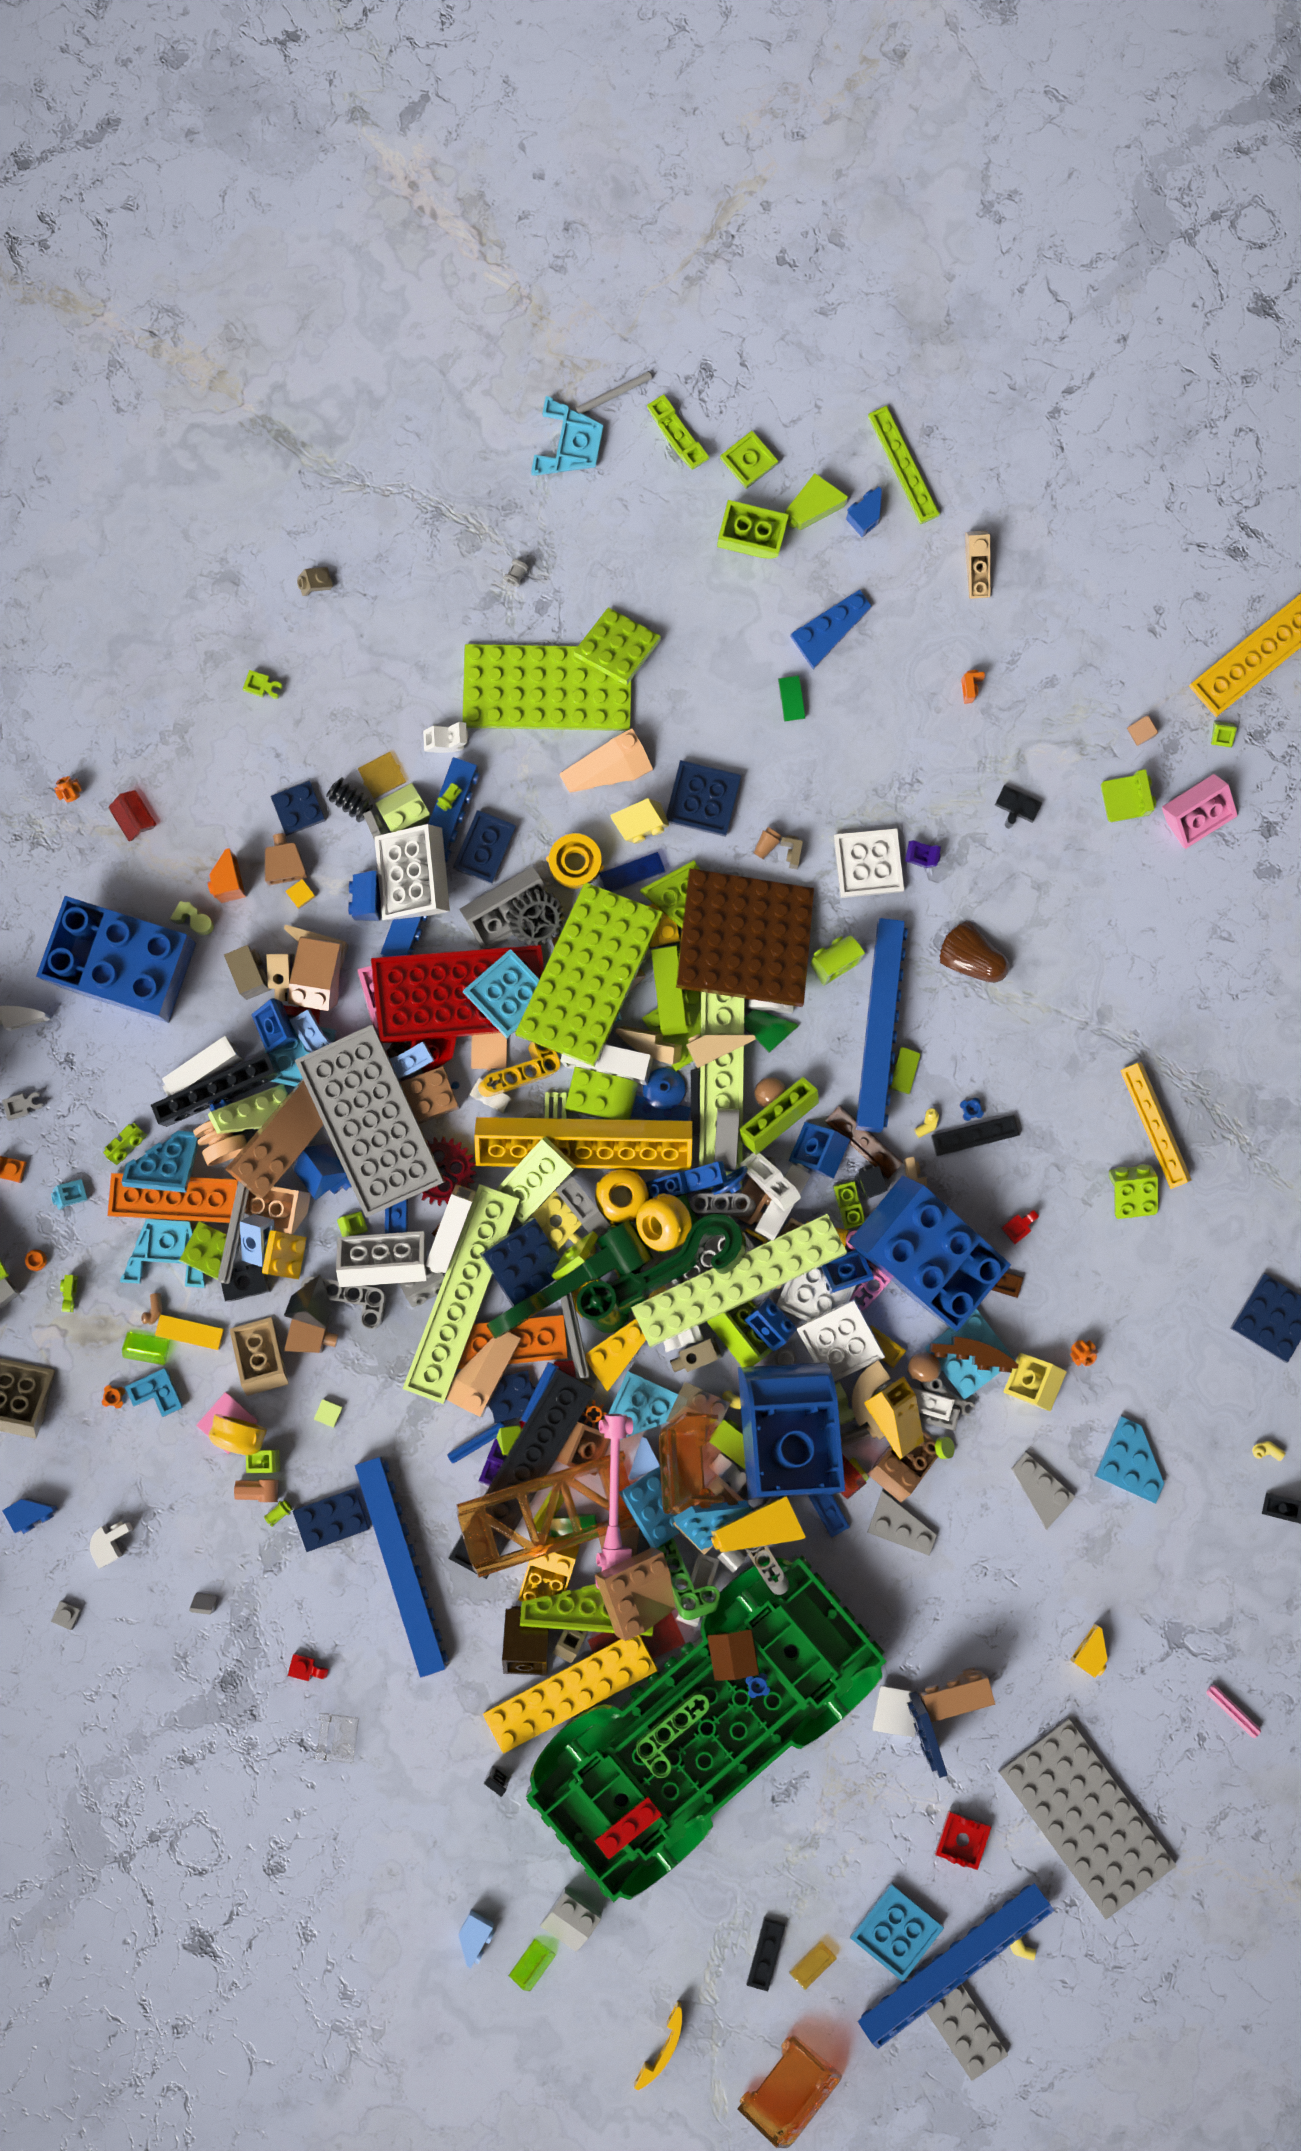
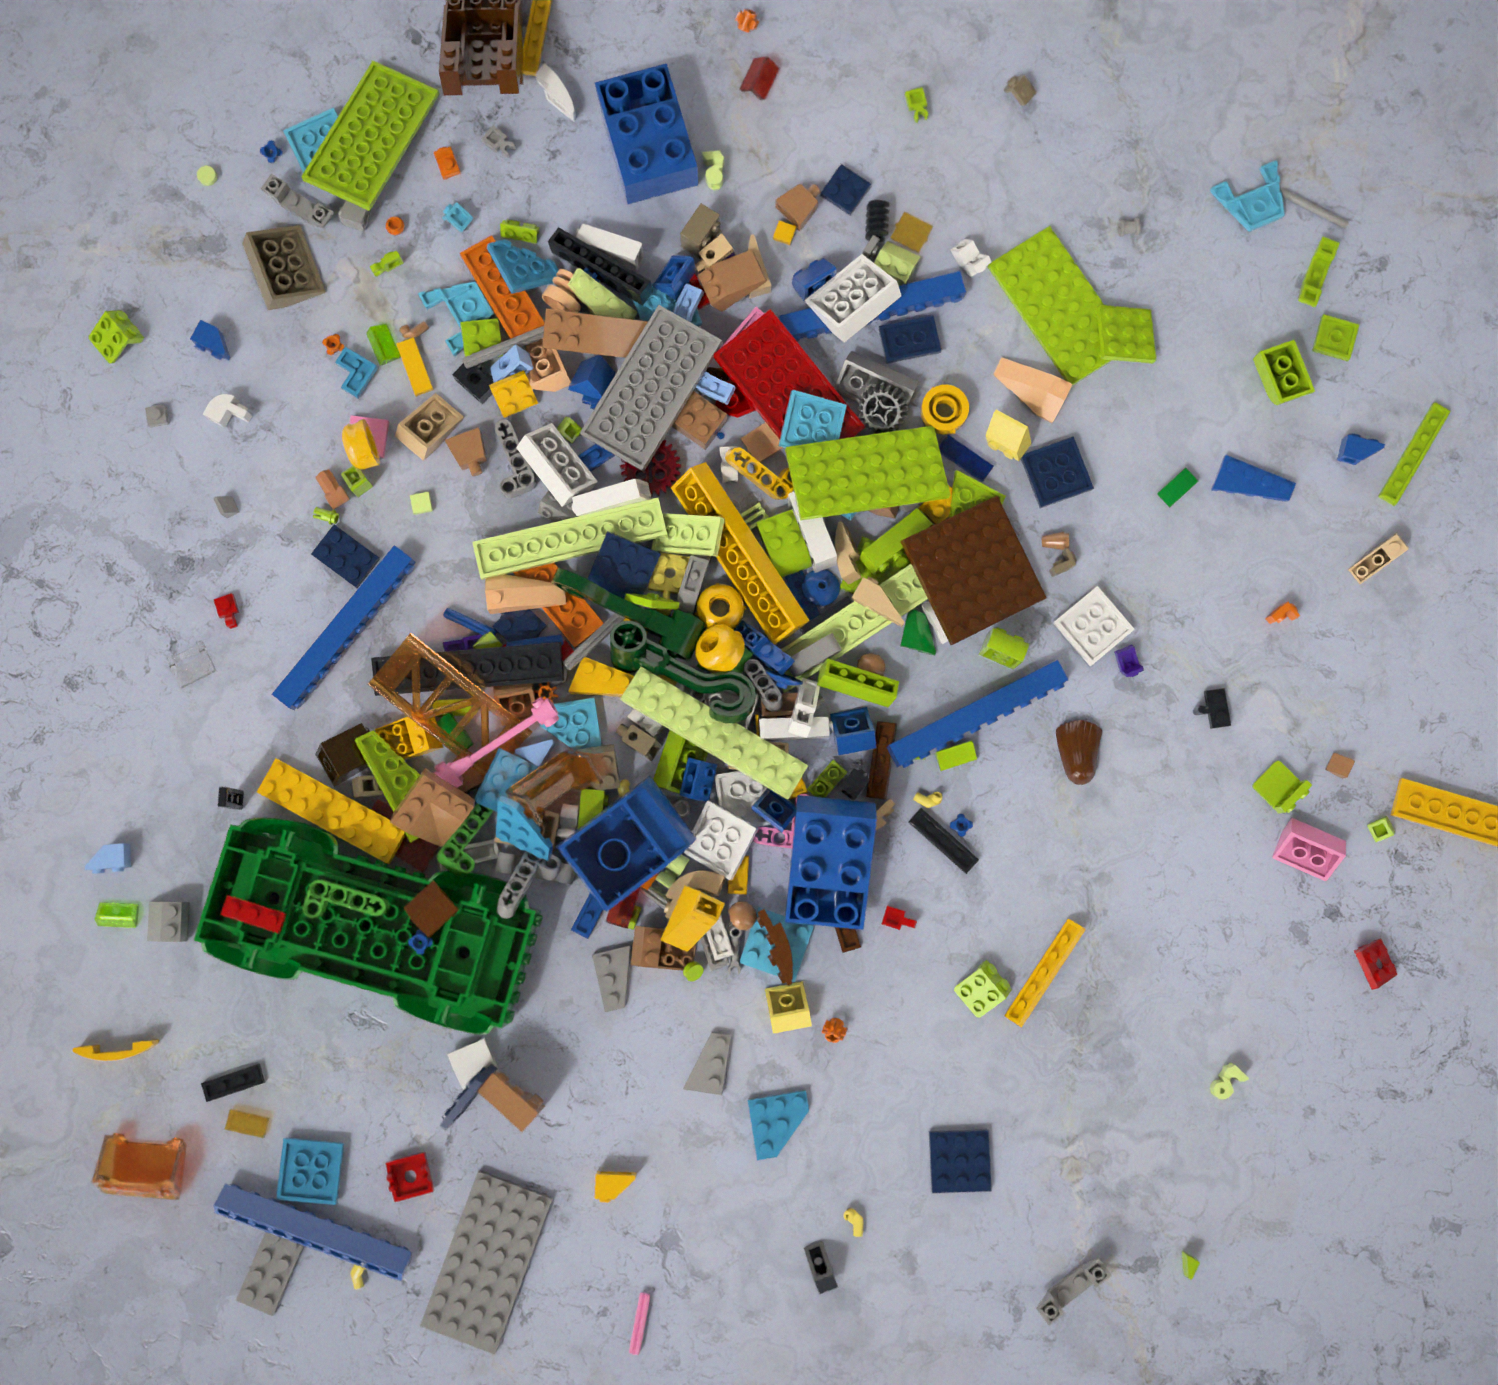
camera: 55 degrees right, 0 degrees up
(226, 878) = (759, 171): orange slope -> none
(310, 1304) = (490, 436): black slope -> none
(445, 802) = (927, 286): lime pin -> none
(761, 1527) = (539, 867): yellow slope -> none
(814, 503) = (1337, 406): lime slope -> none

